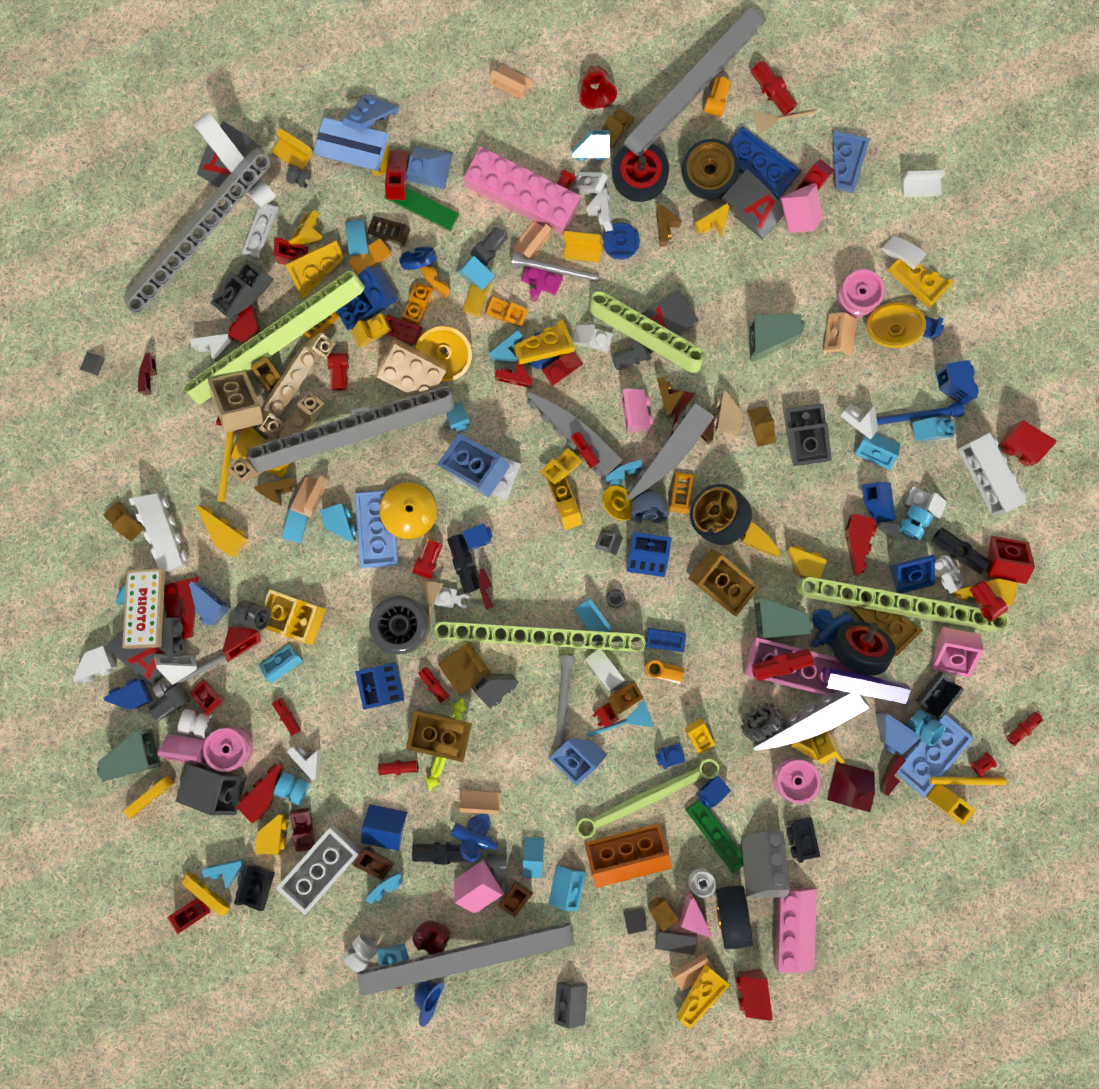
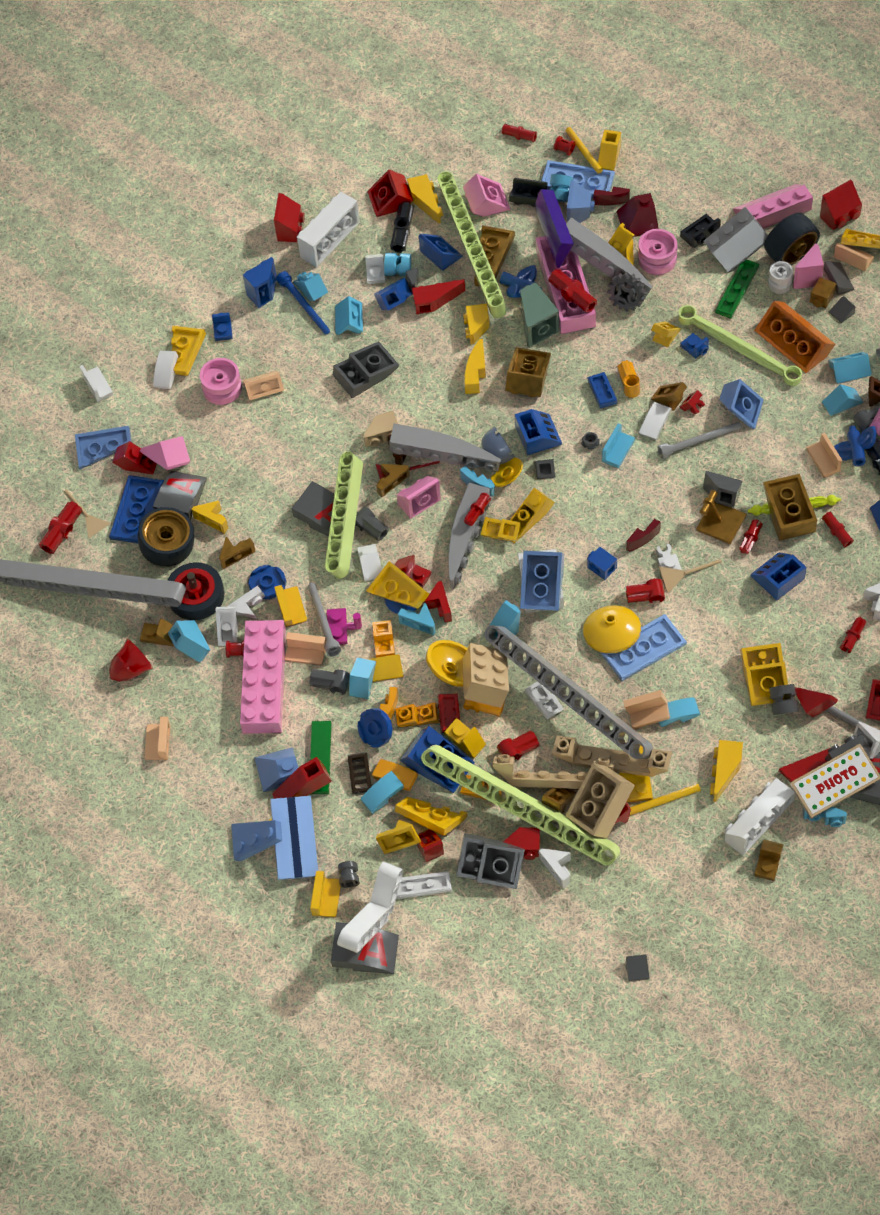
camera: 115 degrees left, 25 degrees down
(147, 369) = (613, 910): dark red slope -> none
(197, 221) = (455, 924): light grey beam -> none
(207, 604) = (799, 739): medium blue slope -> none
(272, 489) = (654, 738): pearl gold slope -> none
(280, 663) = (810, 665): medium azure slope -> none
(337, 521) = (656, 676): medium azure slope -> none
(384, 620) = (716, 578): dark grey wheel -> none
(463, 563) = (631, 563): black piece -> none
(530, 631) = (658, 483): yellowish green beam -> none
(639, 716) = (678, 377): medium azure piece -> none
(680, 508) = (469, 428): light orange slope -> none
(713, 792) = (704, 301): blue brick -> none
(716, 100) = (98, 562): light orange piece -> none
(720, 514) = (484, 378): wheel -> none
(762, 426) = (375, 403): pearl gold slope -> none
(773, 333) = (294, 424): sand green slope -> none
(863, 648) = (523, 247): black wheel -> none
(864, 423) = (332, 336): white slope -> none
(896, 325) = (230, 336): yellow dish -> none
(952, 577) = (424, 226): white plate -> none
(991, 605) = (435, 184): red piece -> none

